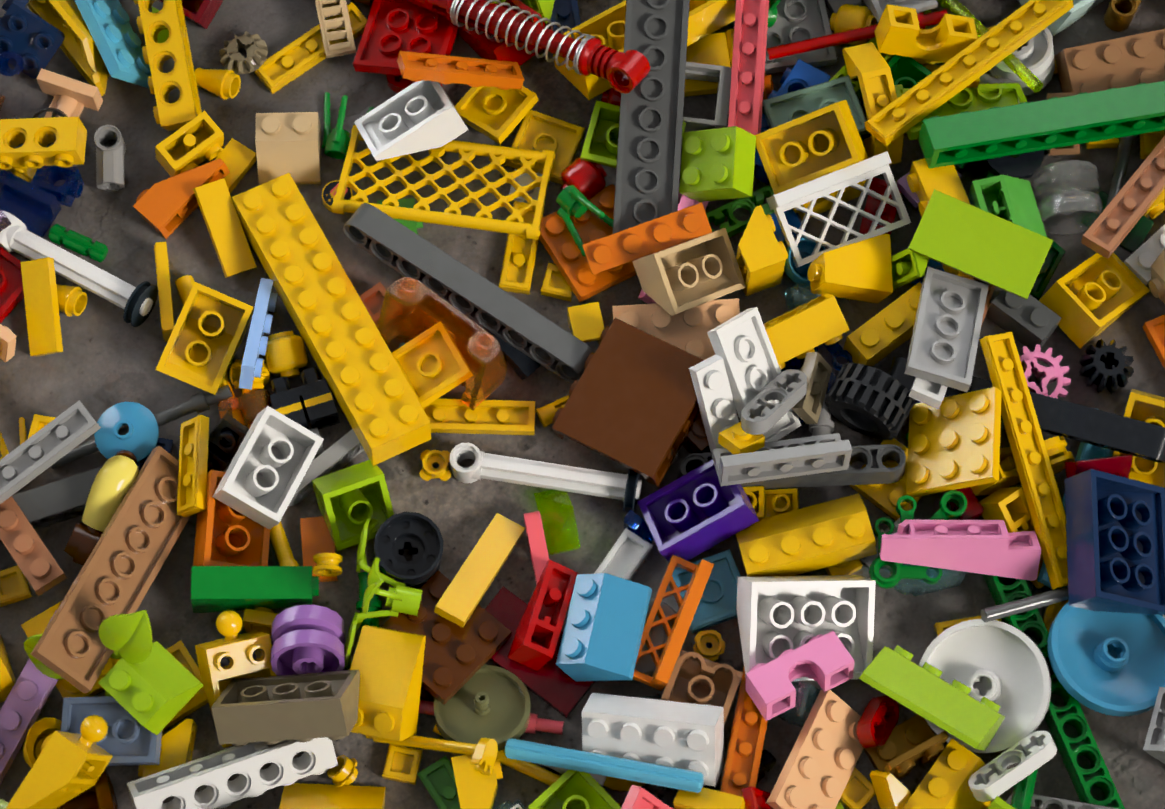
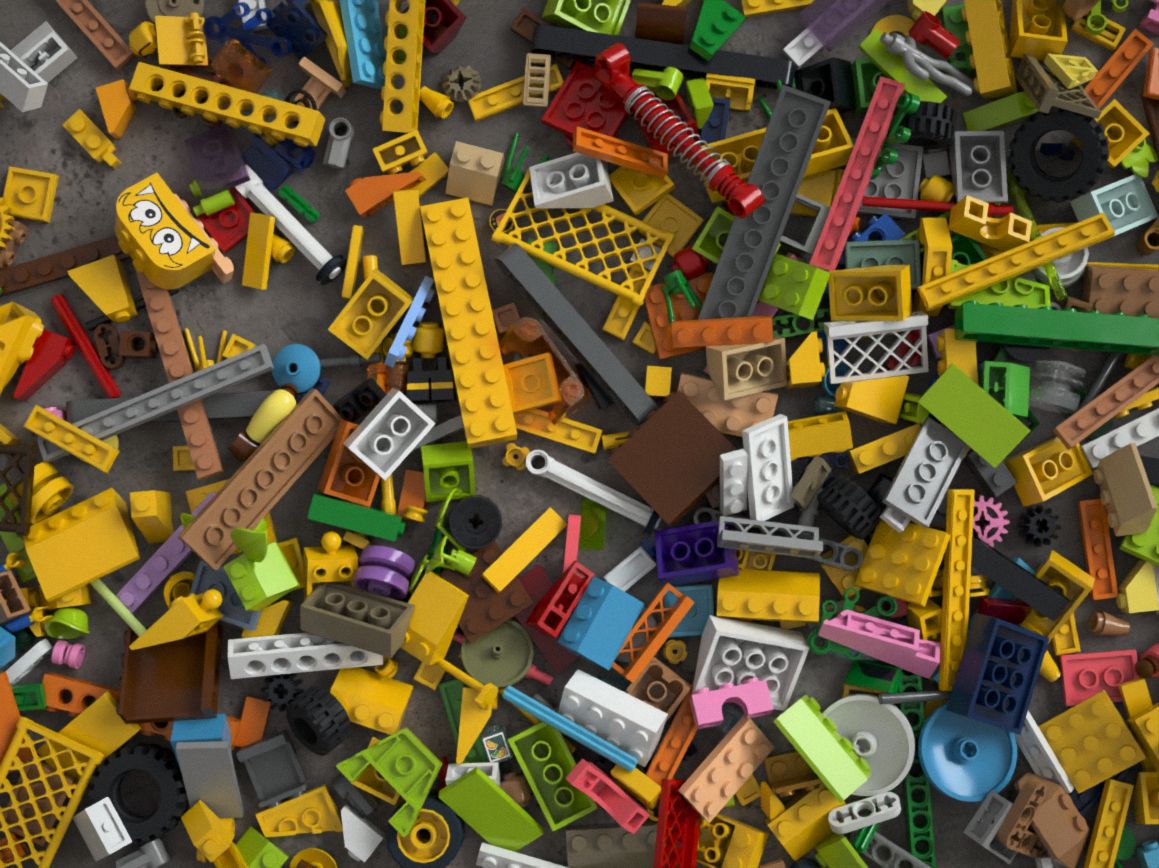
camera: 25 degrees right, 15 degrees up
(193, 466) = (336, 411): yellow tile -> none
(738, 441) = (743, 515): yellow plate -> none
(787, 387) = (773, 503): light grey beam -> none
(877, 721) = (775, 750): red beam -> none
(967, 599) = (874, 676): none -> green slope

